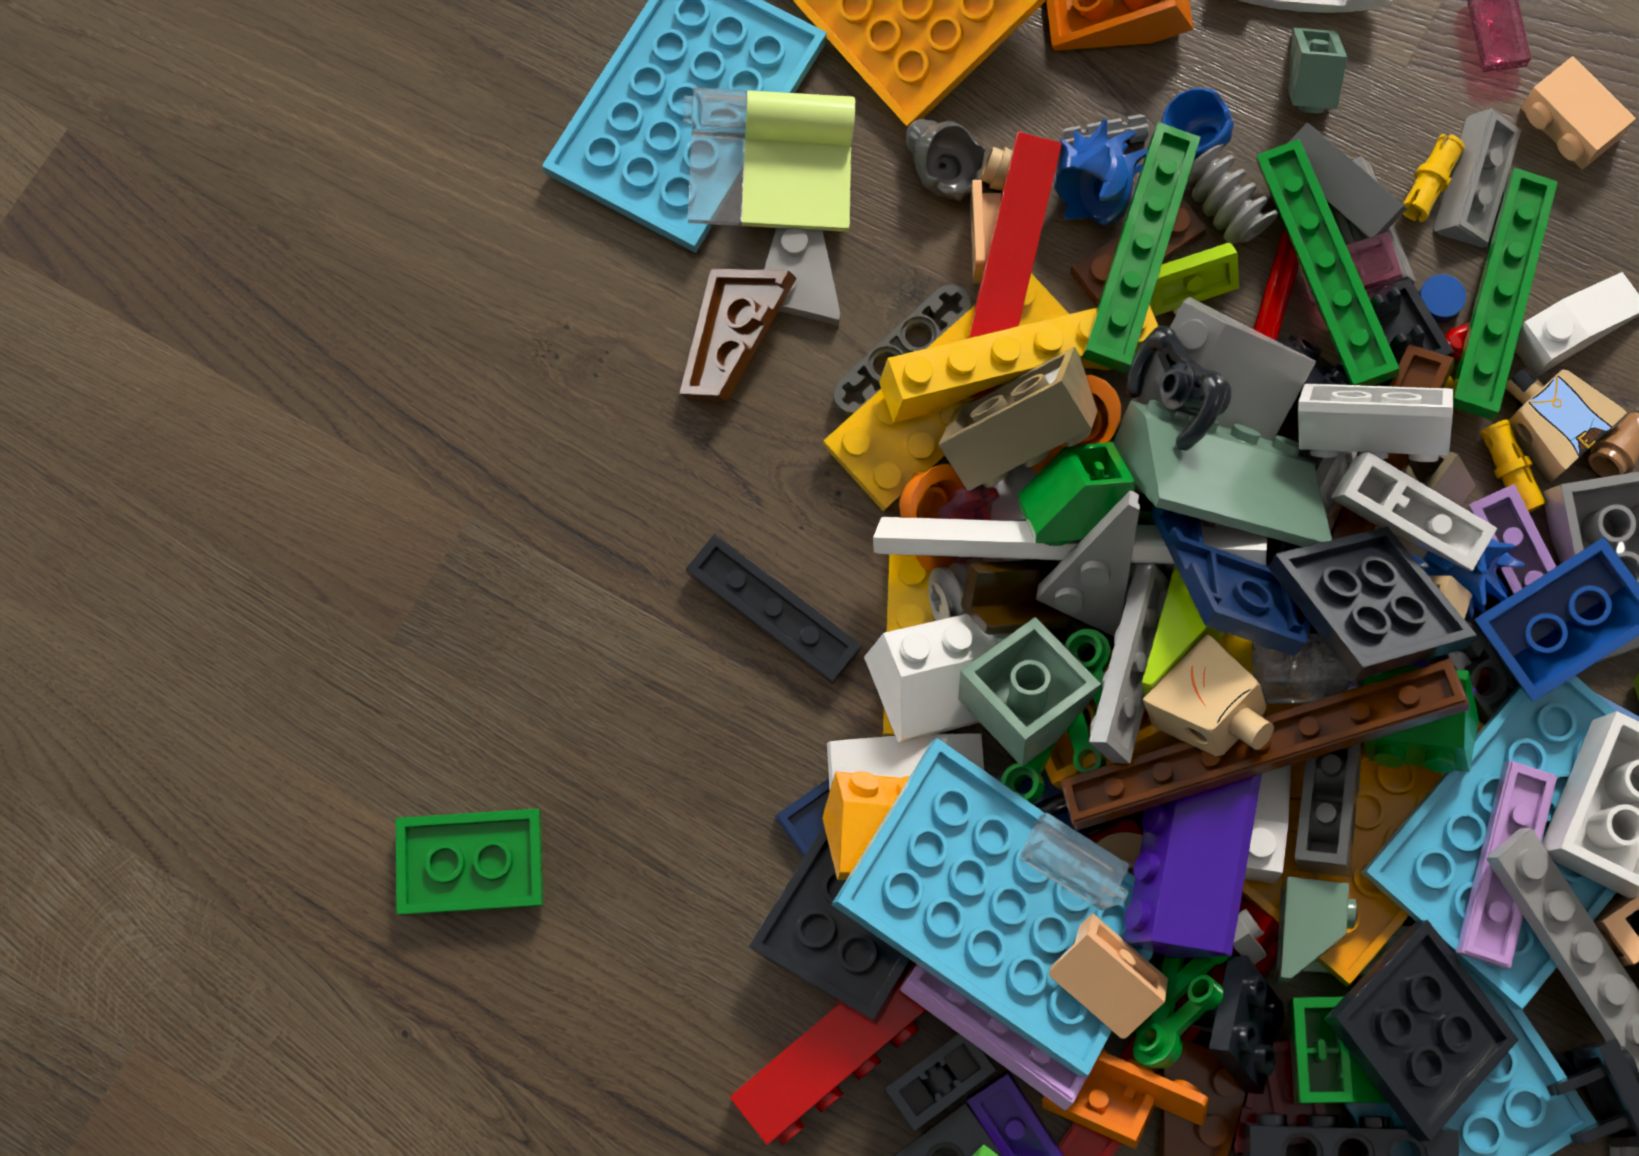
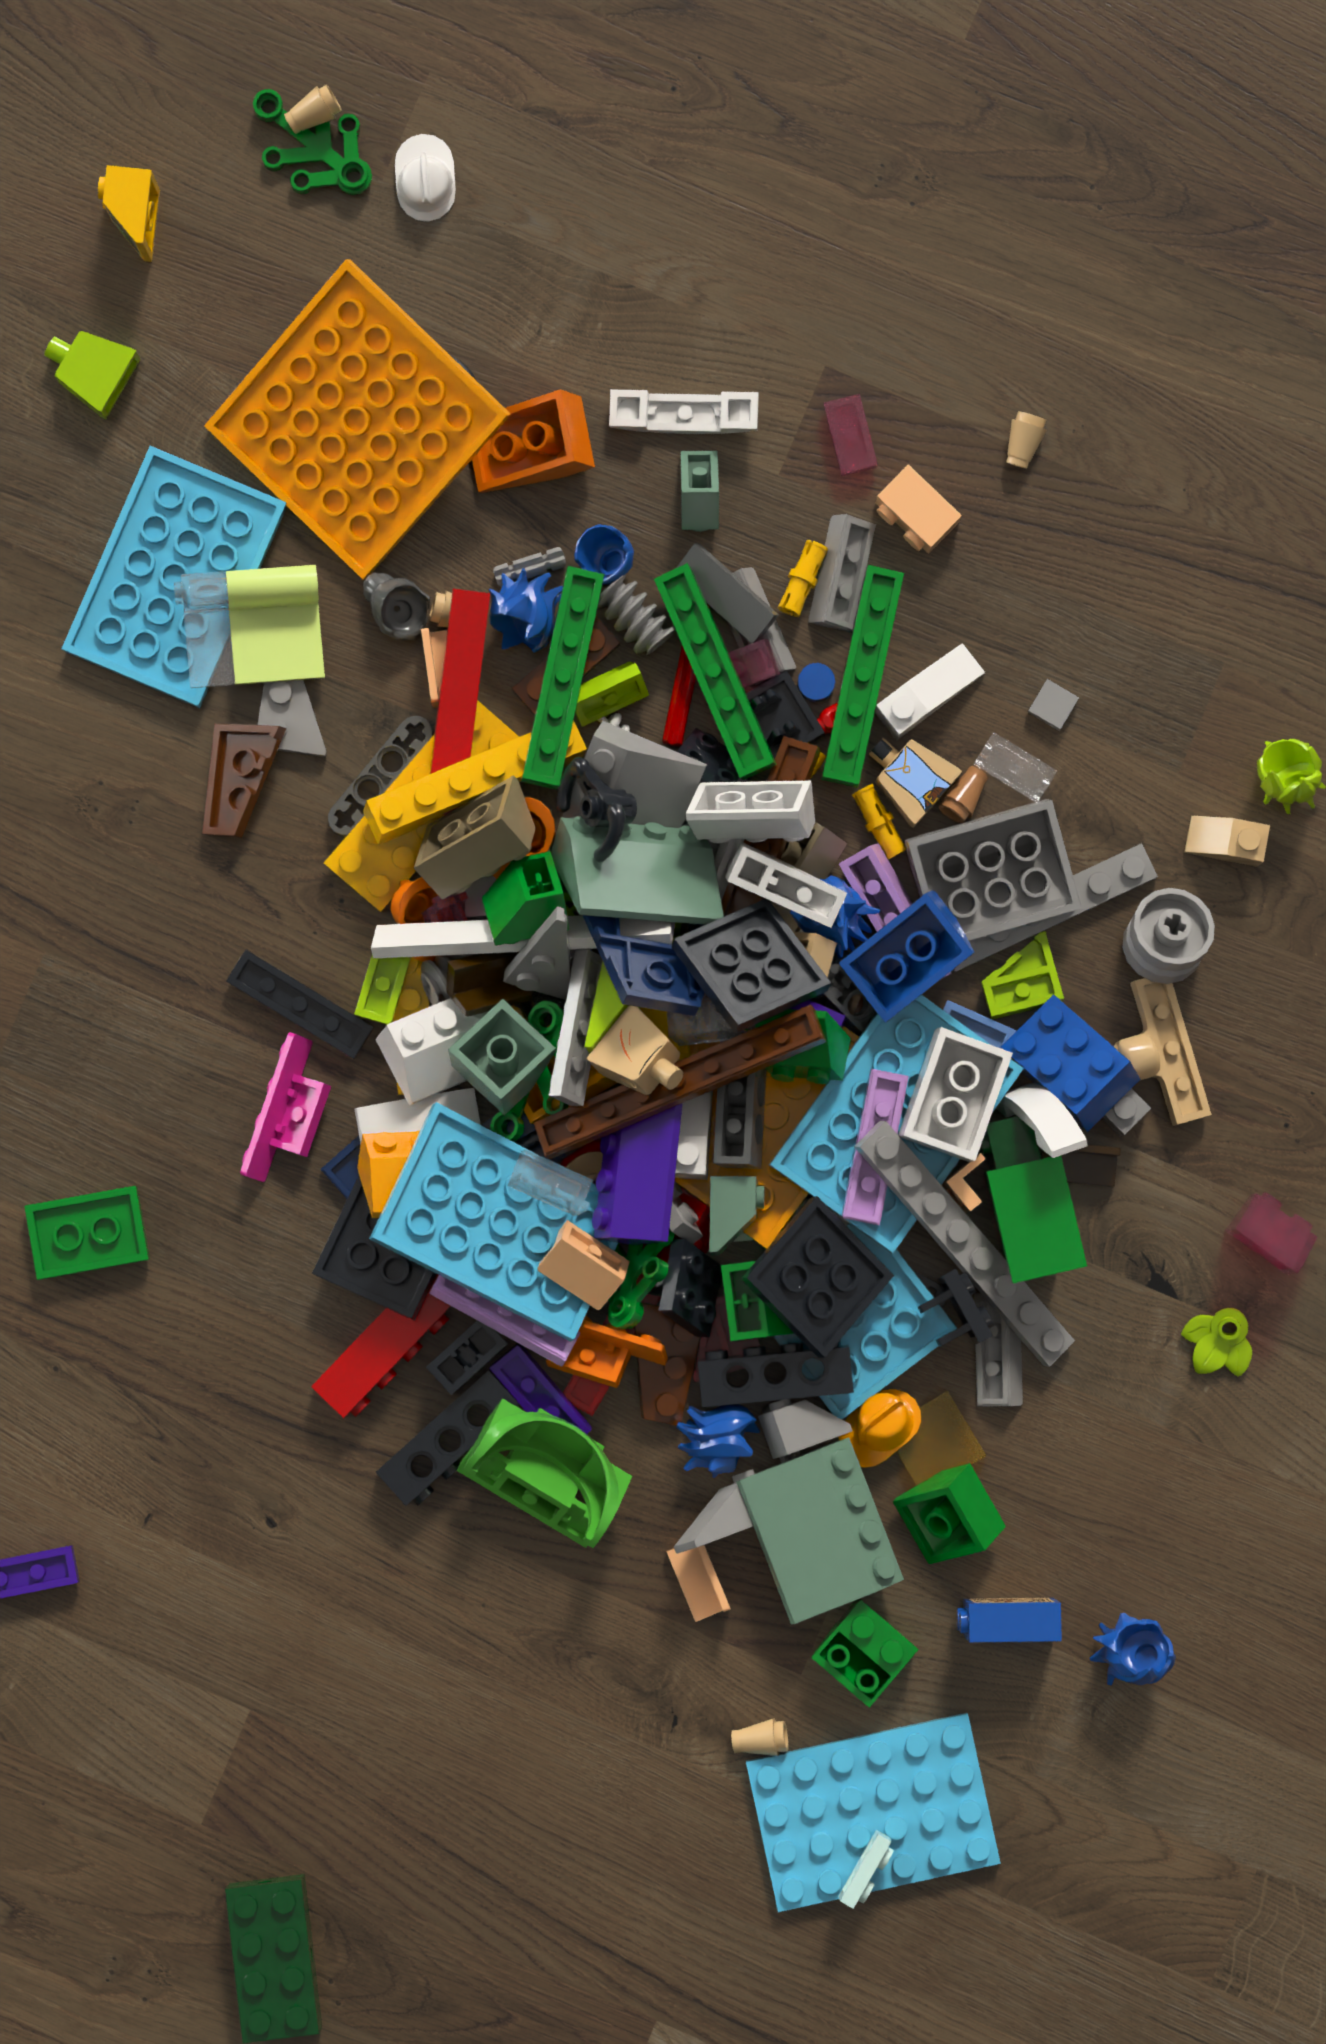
camera: 15 degrees left, 10 degrees up
(742, 739) = (289, 1111): none -> dark pink bracket
(879, 594) = (382, 989): none -> lime panel

